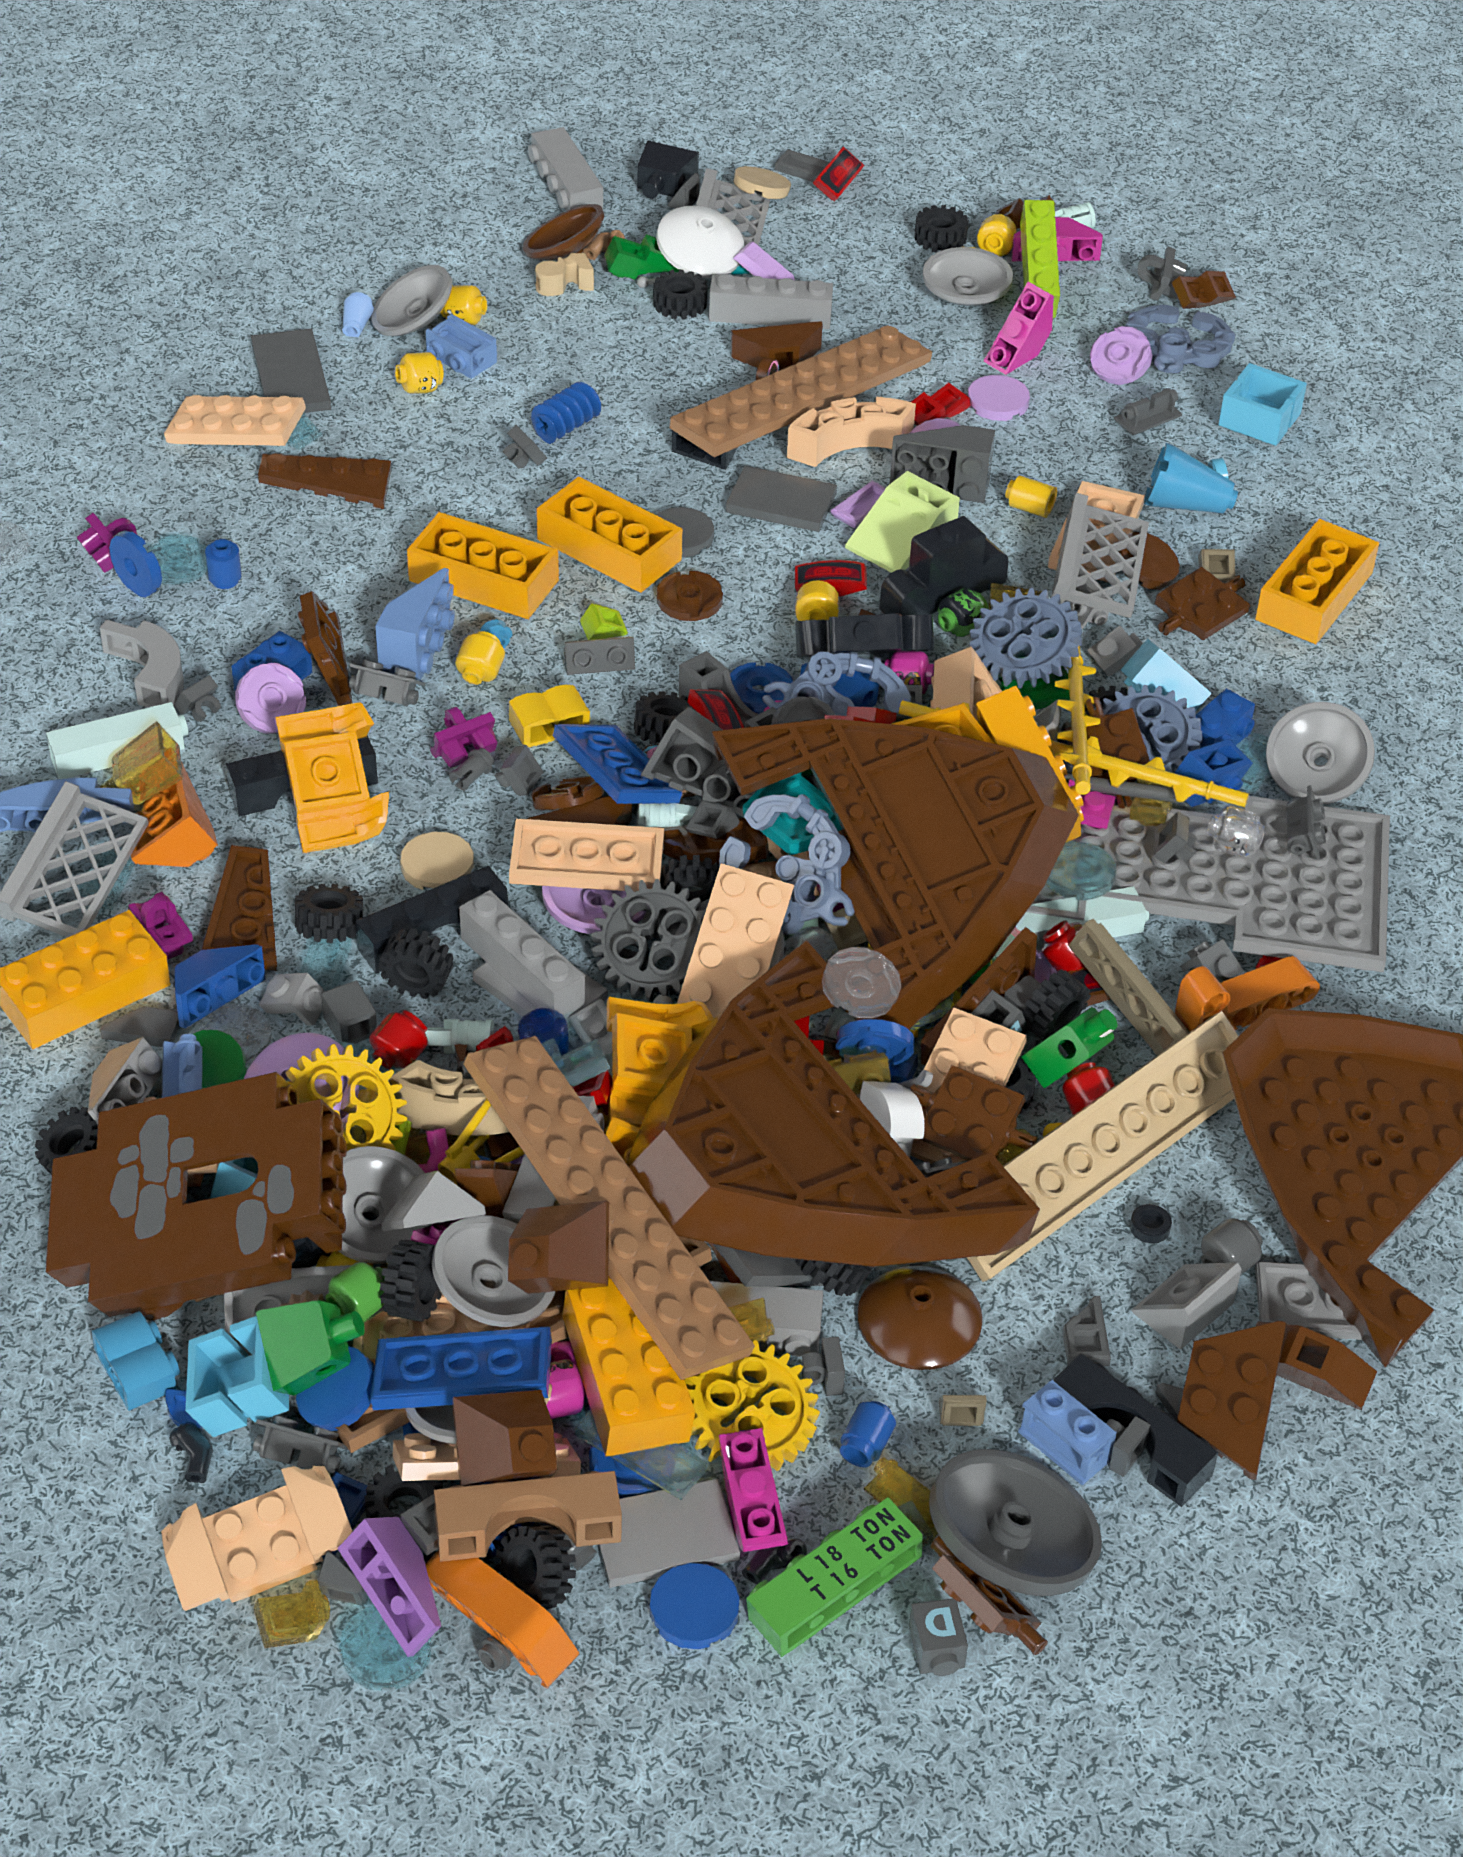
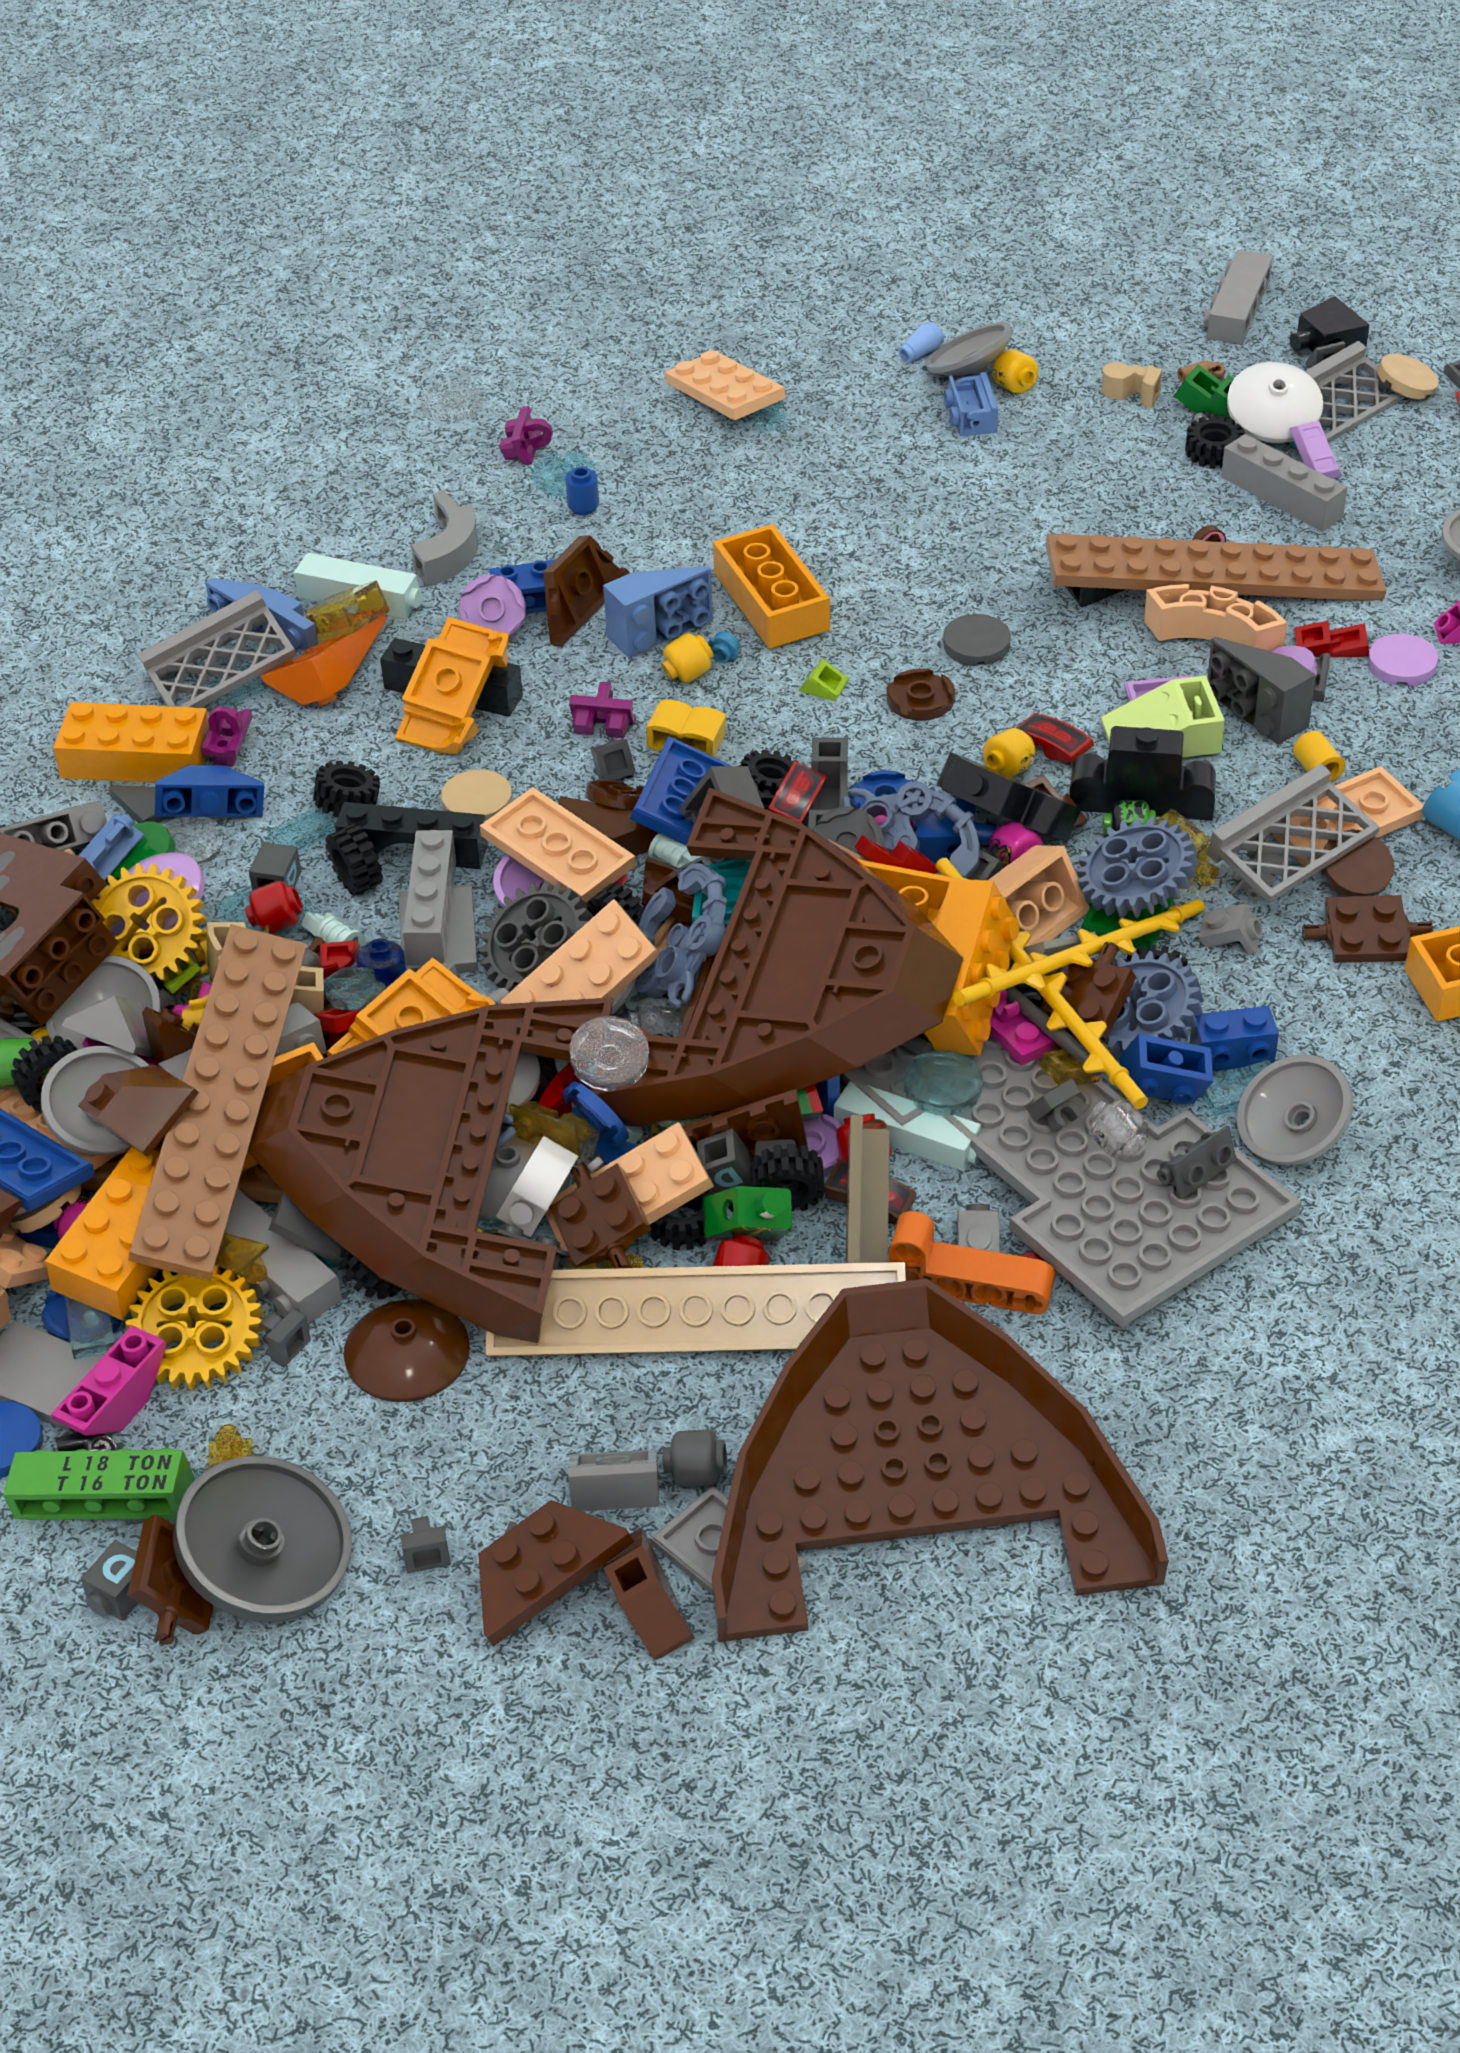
camera: 45 degrees right, 0 degrees up
(134, 565) = (514, 459): blue tile -> none
(196, 696) = (449, 581): dark grey tile -> none
(244, 905) = (296, 758): reddish brown wing -> none
(291, 367) = (822, 366): dark grey tile -> none
(294, 994) = (251, 833): light grey bracket -> none
(339, 476) = (757, 467): reddish brown wing -> none
(399, 685) = (592, 638): hinge -> none
(419, 372) = (913, 410): yellow head -> none
(478, 762) = (583, 740): dark grey pin -> none
(523, 449) = (925, 510): dark grey tile -> none
(565, 233) = (1168, 349): reddish brown dish -> none
(565, 411) = (990, 494): blue piece -> none
(599, 655) = (784, 704): dark grey hinge -> none
(609, 534) = (901, 610): light orange brick -> none
(781, 498) = (1096, 653): dark grey tile -> none
(782, 342) = (1249, 521): reddish brown slope -> none
(867, 1433) = (254, 1403): blue brick -> none
(962, 1410) = (345, 1435): dark tan slope -> none
(1067, 1432) = (388, 1502): medium blue hinge -> none
(1087, 1335) = (508, 1450): dark grey tile -> none
(1150, 1223) = (668, 1400): black tile -> none
(1155, 668) = (1228, 969): slope -> none
(1177, 1457) = (446, 1581): black arch -> none
(1218, 562) = (1427, 903): dark tan slope -> none

